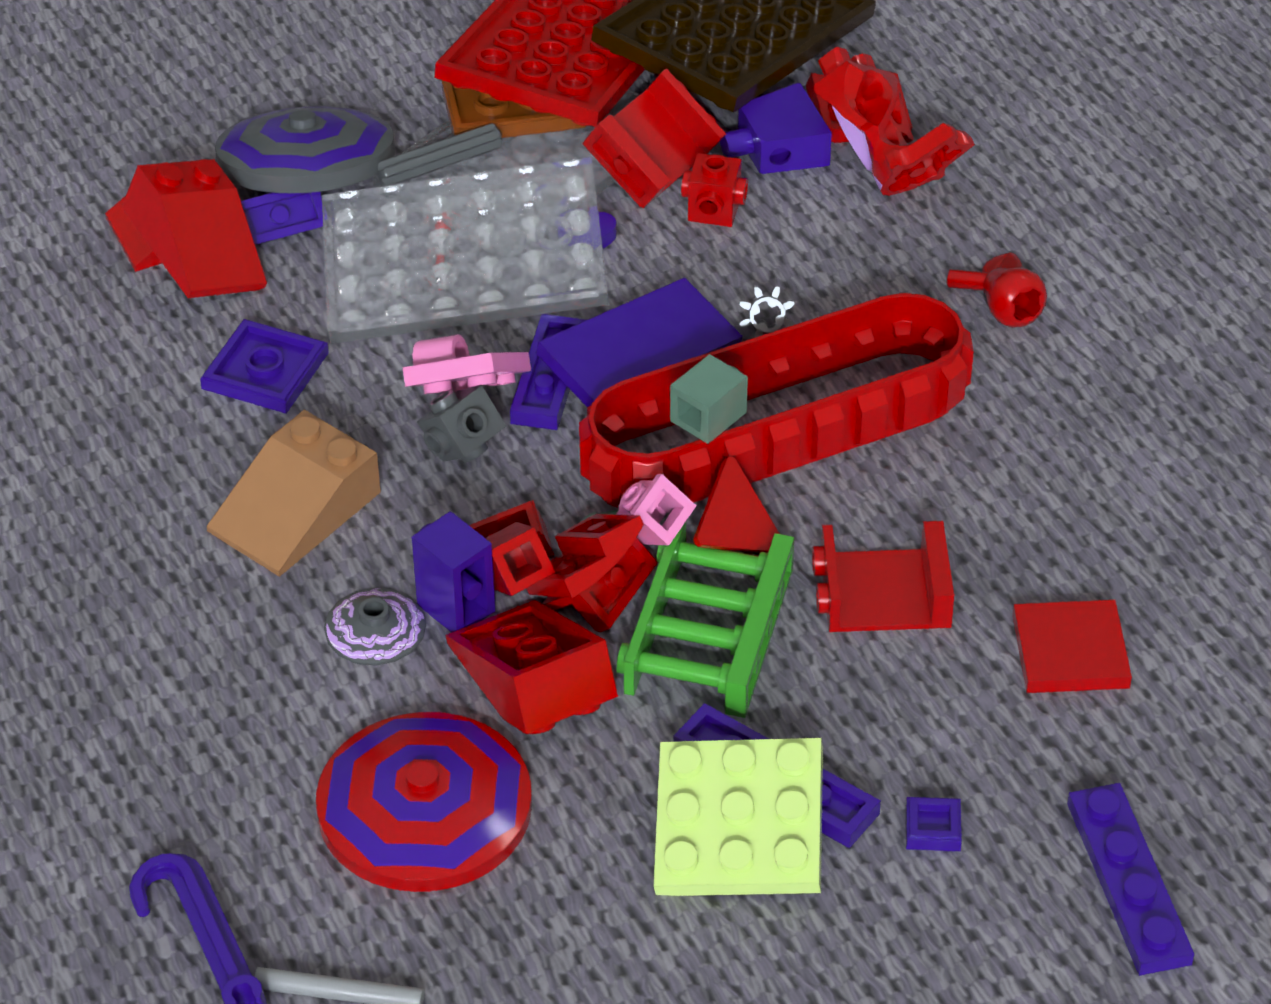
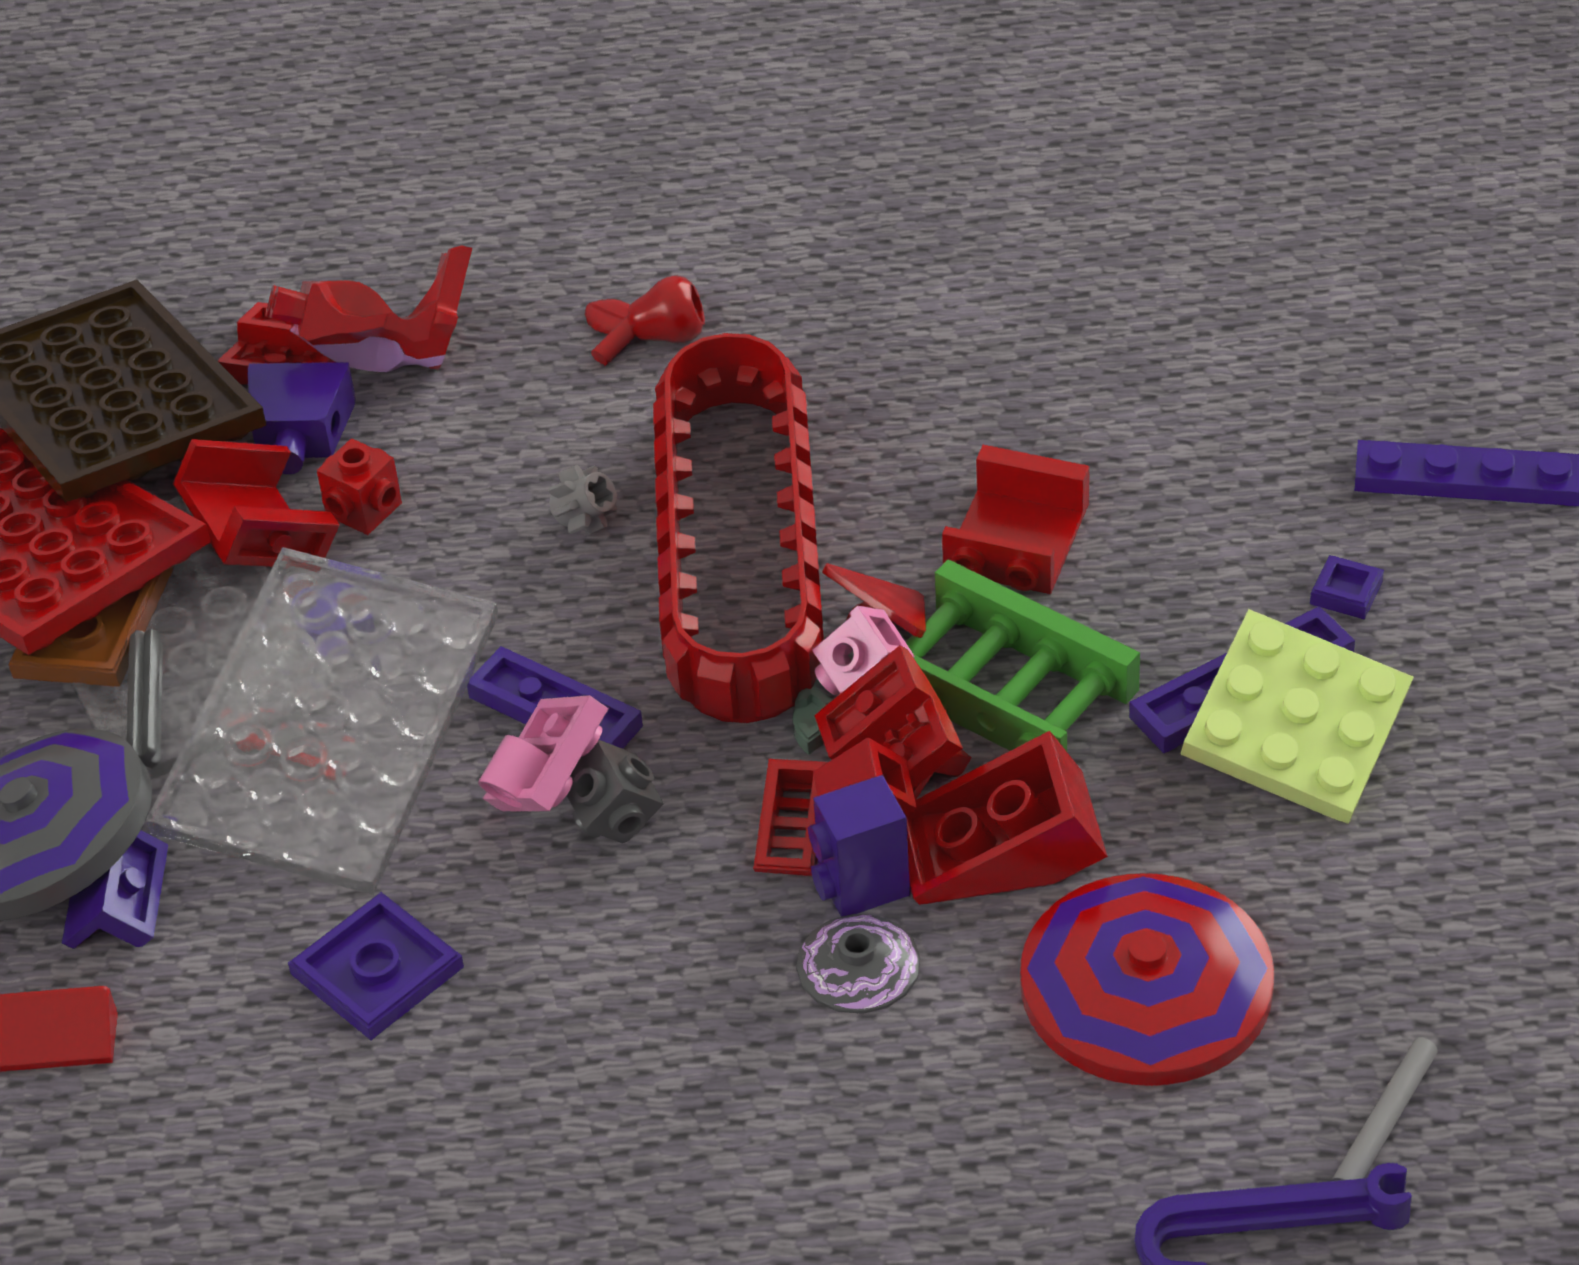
camera: 65 degrees left, 0 degrees up
(195, 227) = (126, 954): red slope -> none
(296, 493) = (628, 975): medium nougat slope -> none
(636, 339) = (568, 615): dark purple tile -> none
(708, 398) = (767, 538): sand green brick -> none
(1071, 646) = (1161, 424): red tile -> none

